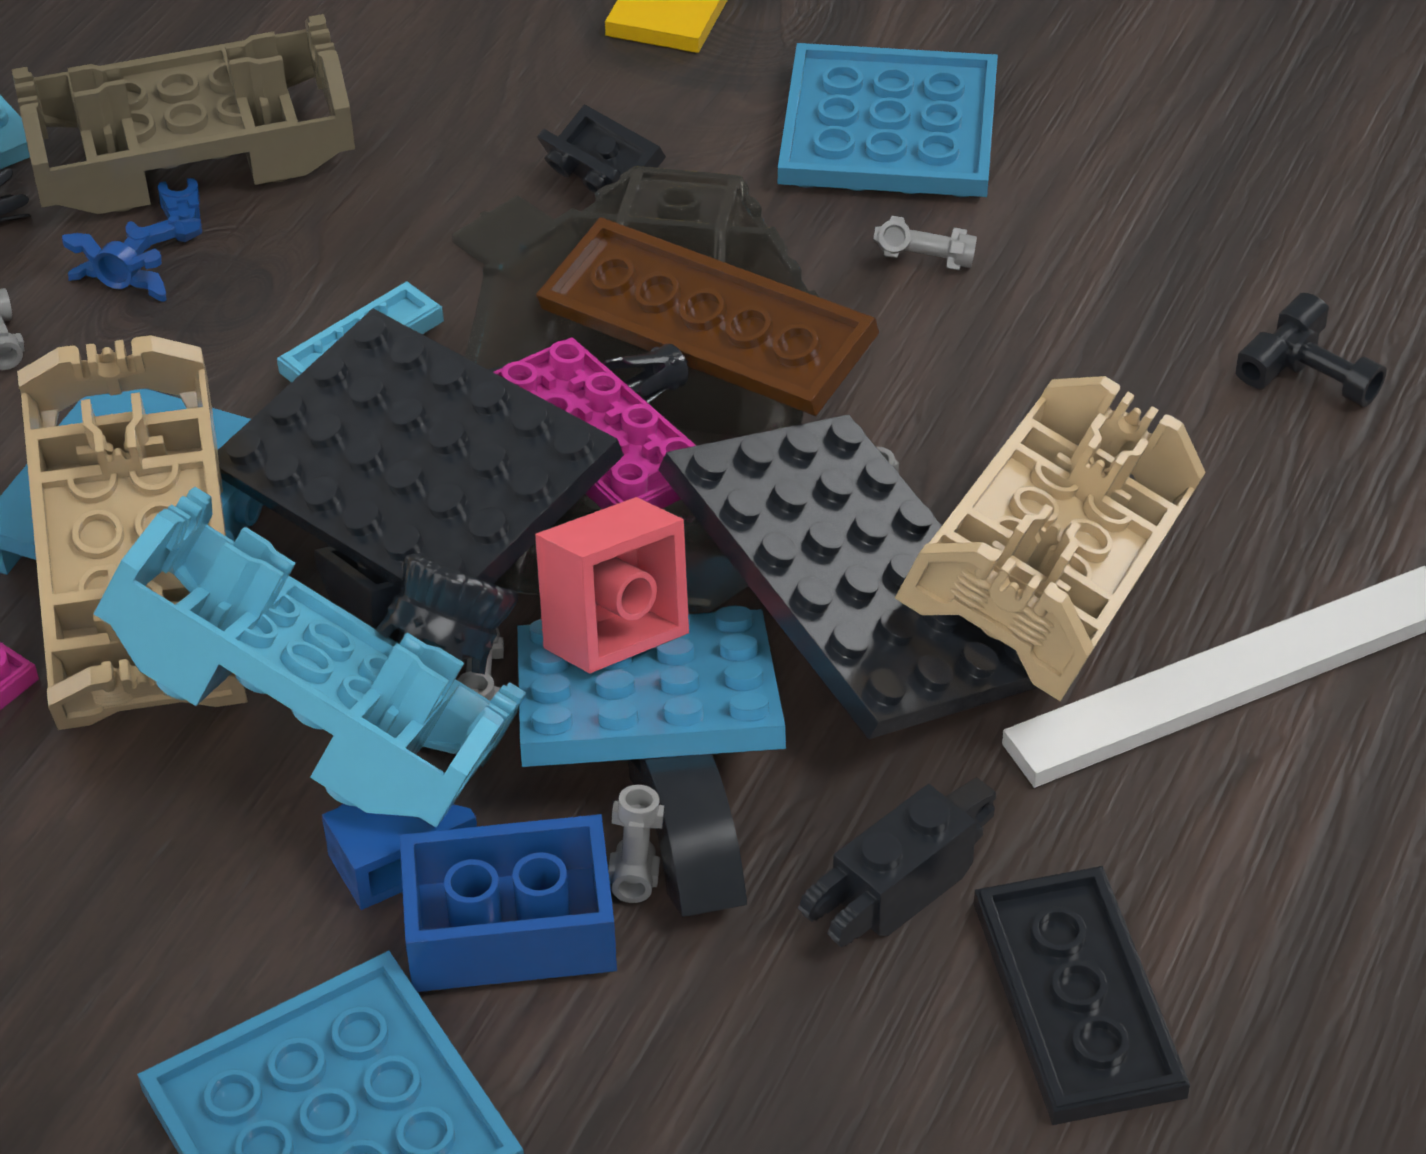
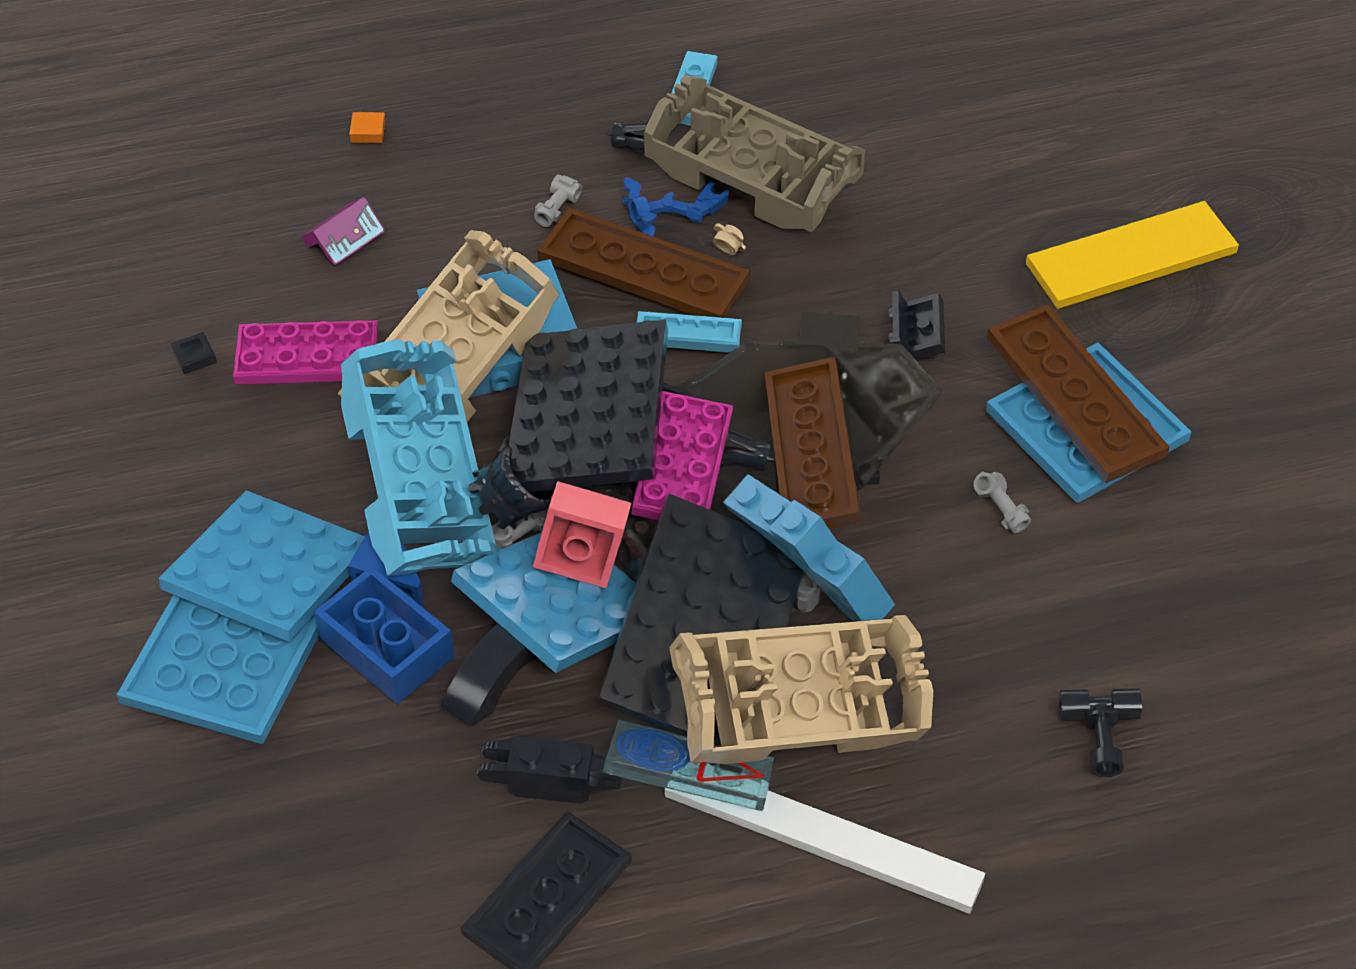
camera: 50 degrees right, 5 degrees up
(223, 305) = (644, 265): none -> reddish brown plate
(232, 971) = (264, 565): none -> dark azure plate
(268, 220) = (728, 239): none -> tan plate
(634, 864) = (458, 648): light grey bar -> none
(857, 90) = (1078, 393): none -> reddish brown plate
(864, 388) = (813, 548): none -> dark azure arch
(1029, 727) = (664, 761): none -> clear light blue tile

